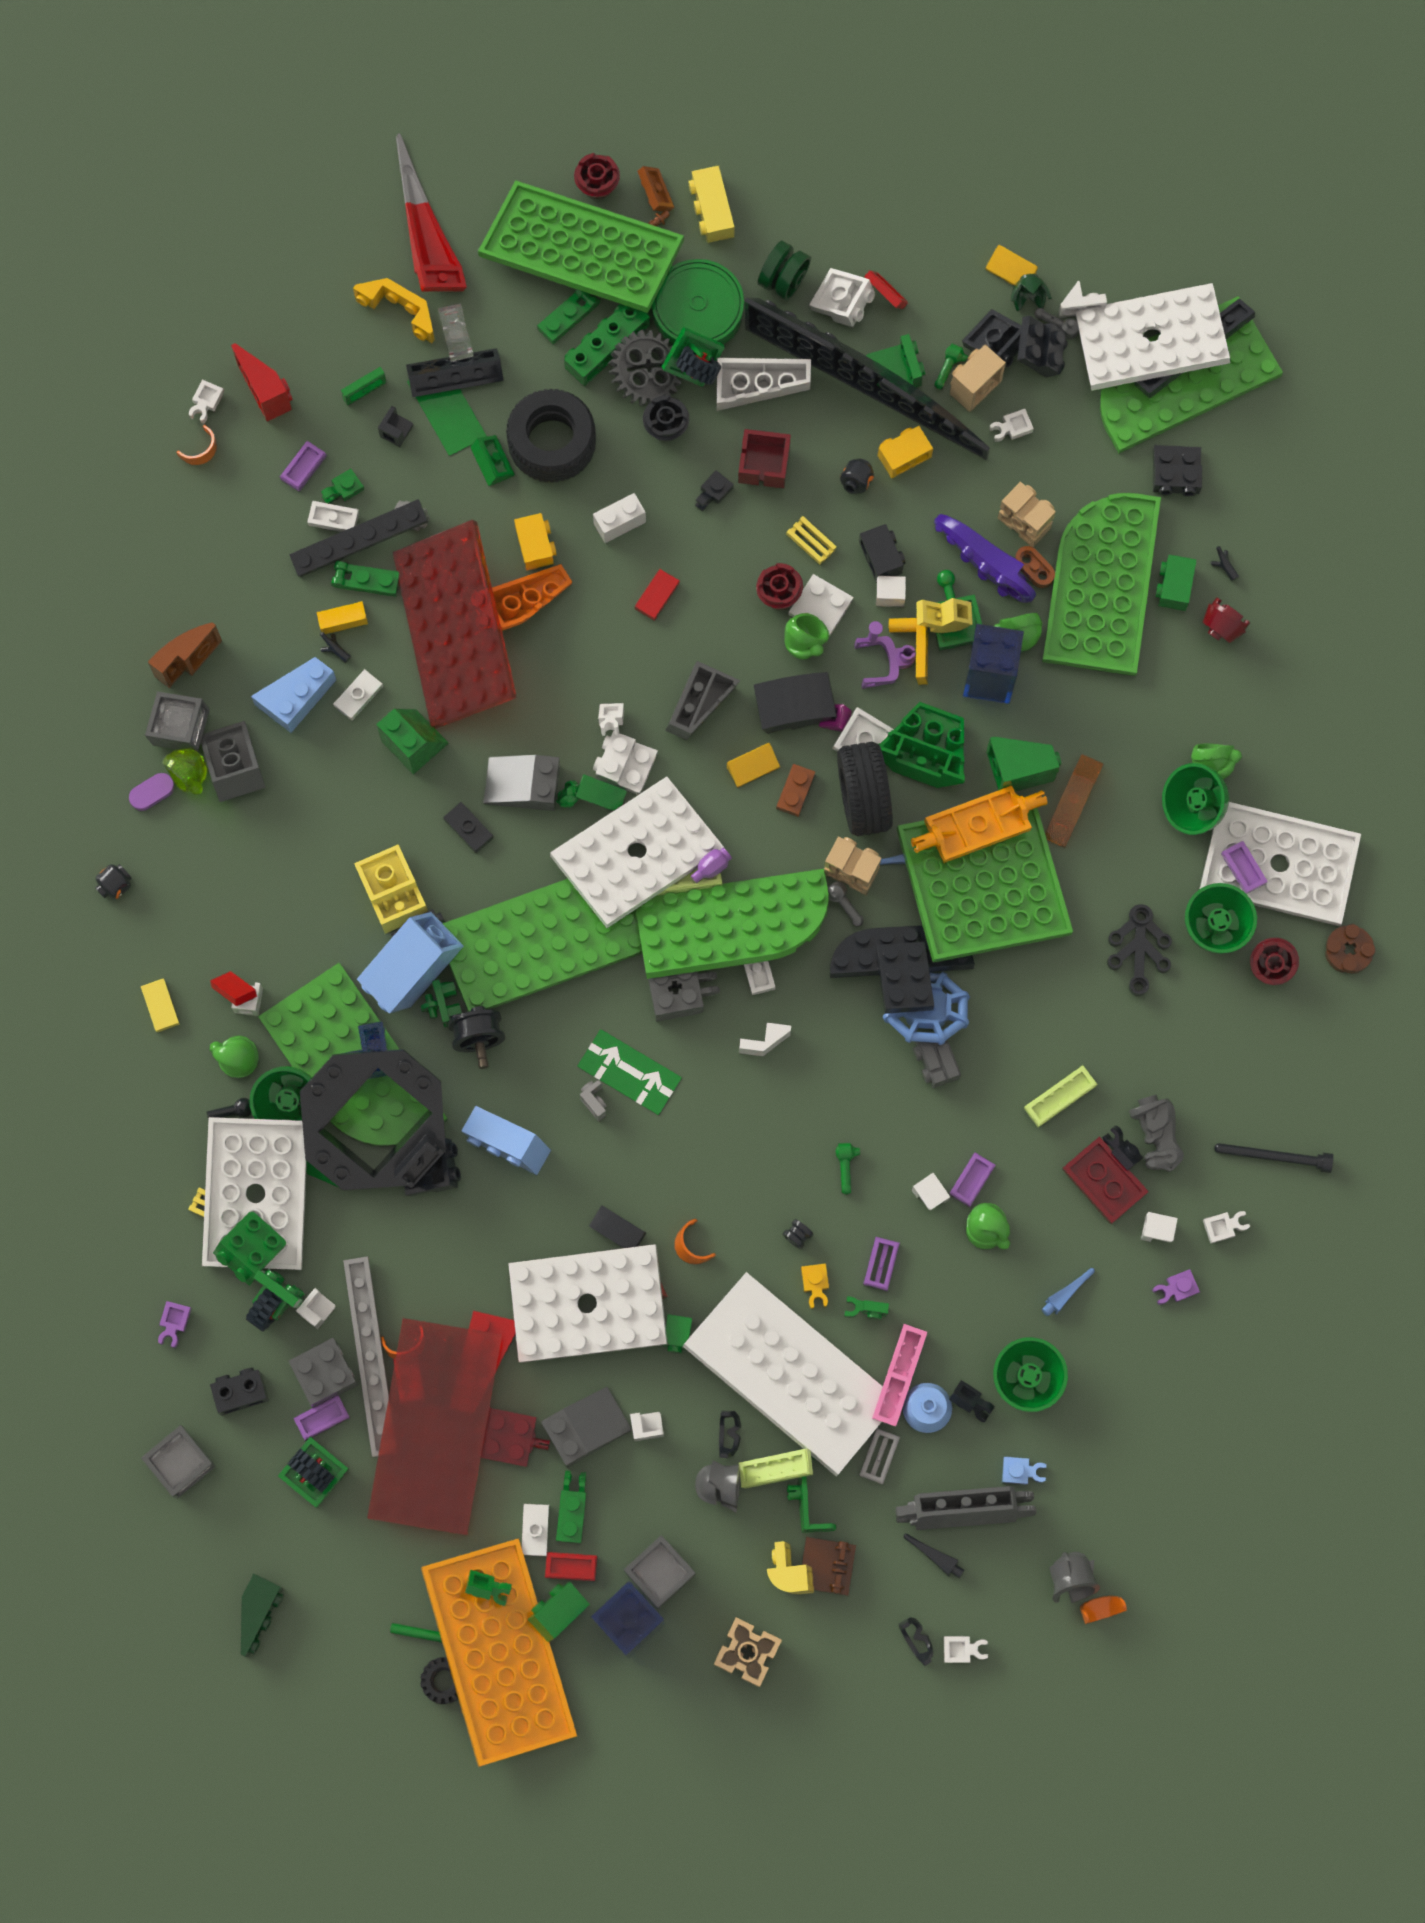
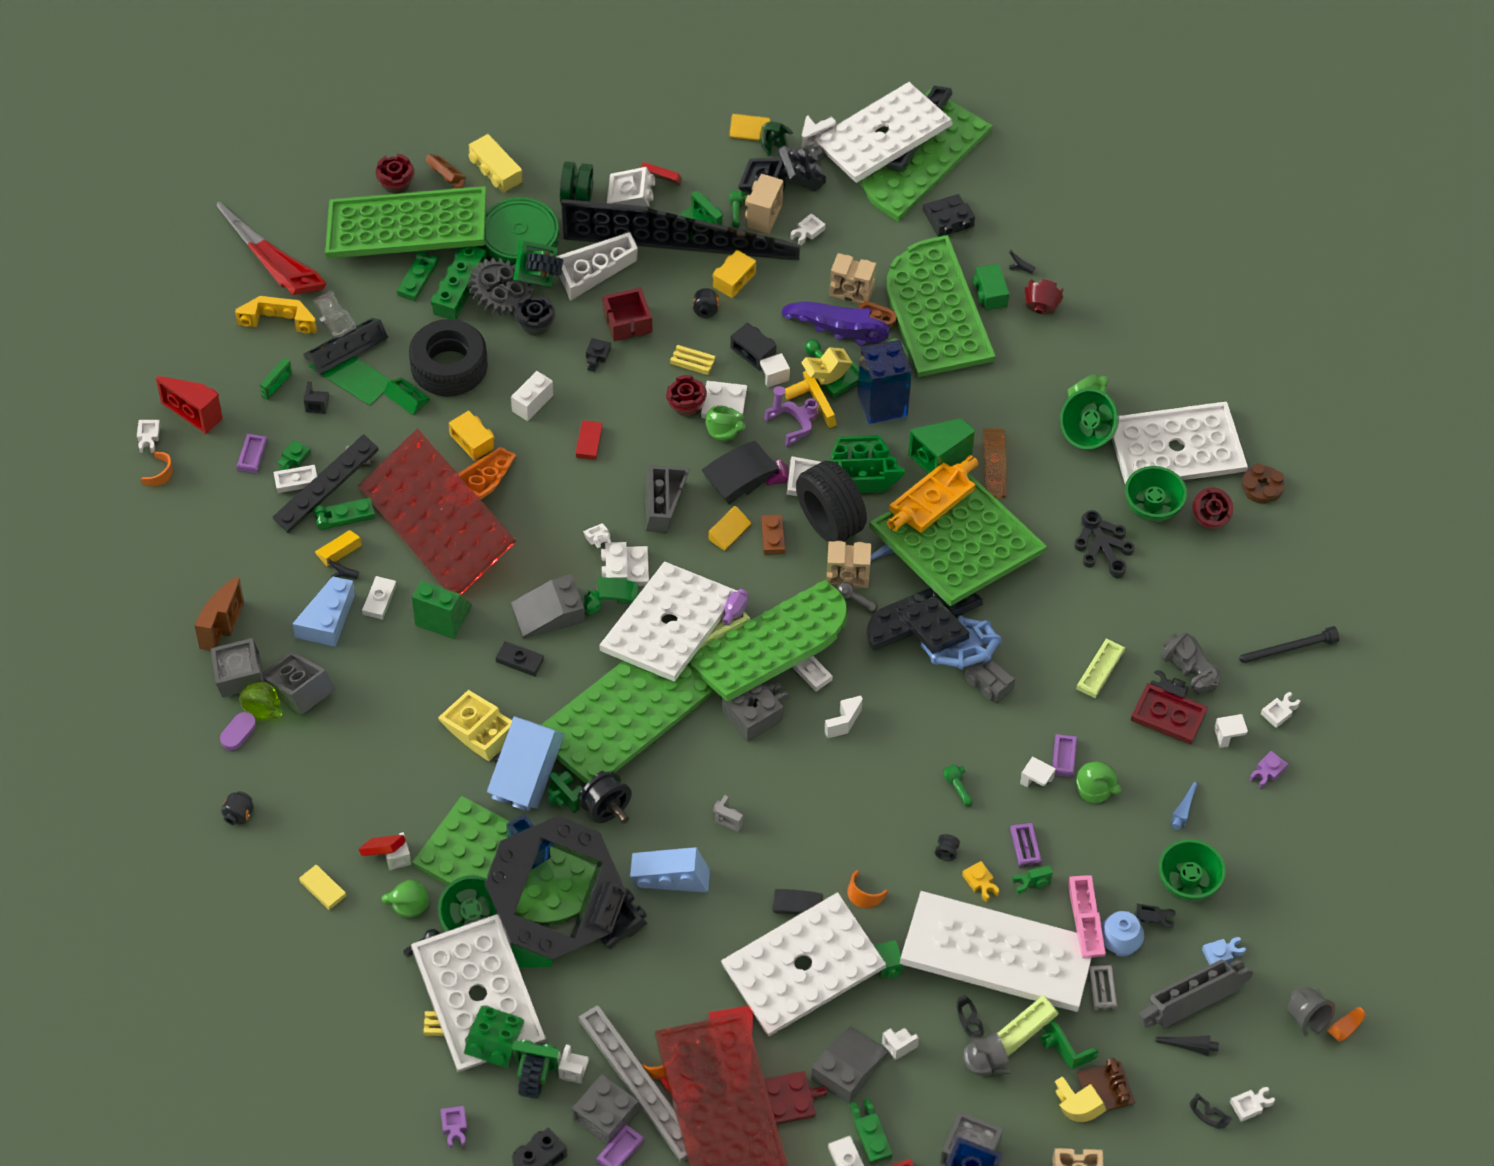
camera: 25 degrees left, 20 degrees down
(629, 1072) = (745, 786): green sticker -> none
(1244, 867) = (1151, 453): medium lavender tile -> none

